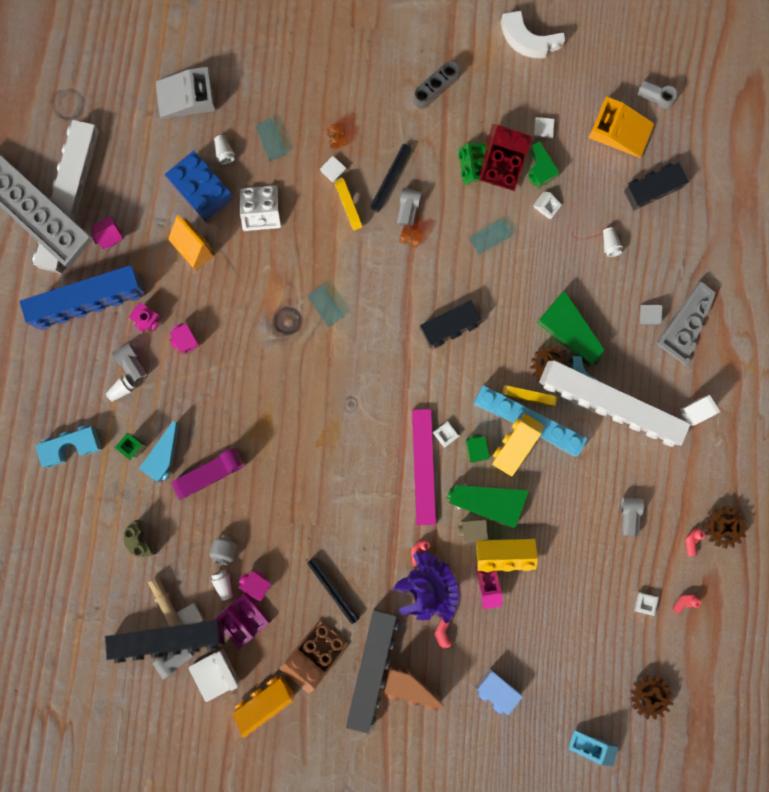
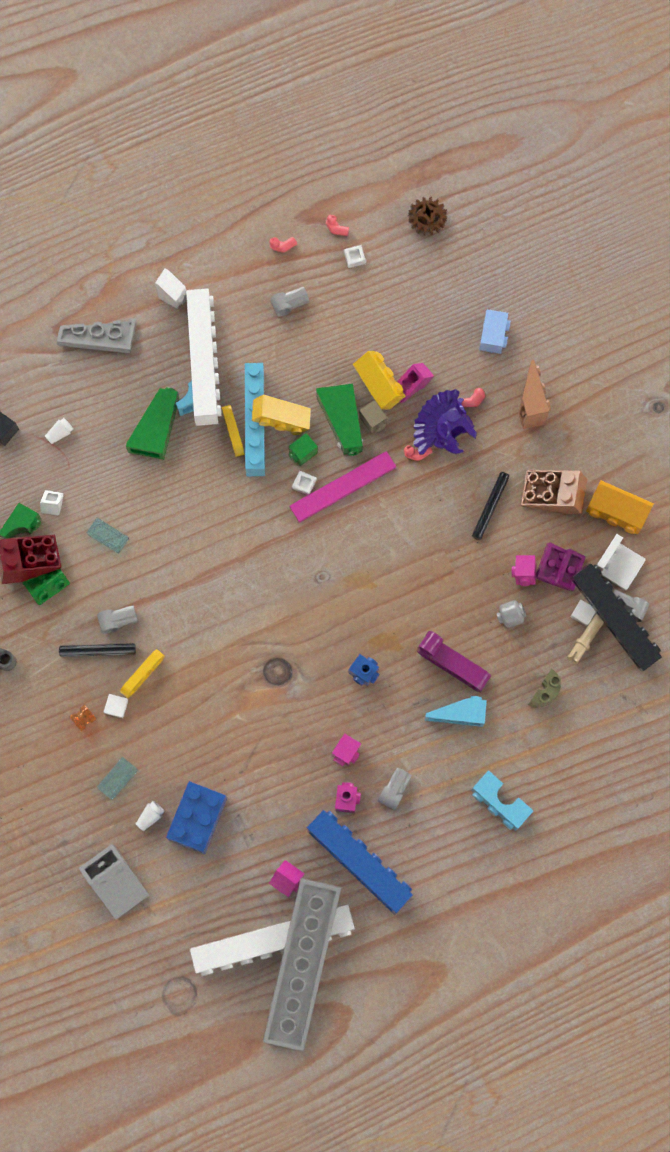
camera: 120 degrees left, 10 degrees down
(121, 388) = (422, 784): white cone -> none
(130, 446) = (469, 742): green brick -> none
(190, 243) = (257, 790): light orange slope -> none
(222, 584) = (540, 599): white cone -> none
(250, 394) = (360, 664): none -> blue brick
(259, 208) = (186, 751): white bracket -> none
(325, 306) = (247, 645): clear light blue tile -> none
(371, 669) = (537, 438): dark grey brick -> none
(410, 236) = (143, 602): clear orange wheel -> none
(450, 324) = (205, 527): black brick -> none
(546, 356) = (196, 434): reddish brown gear -> none
(593, 748) = (494, 239): medium azure arch -> none
(650, 315) = (106, 368): light grey slope -> none
(731, 532) = (257, 226): reddish brown gear -> none

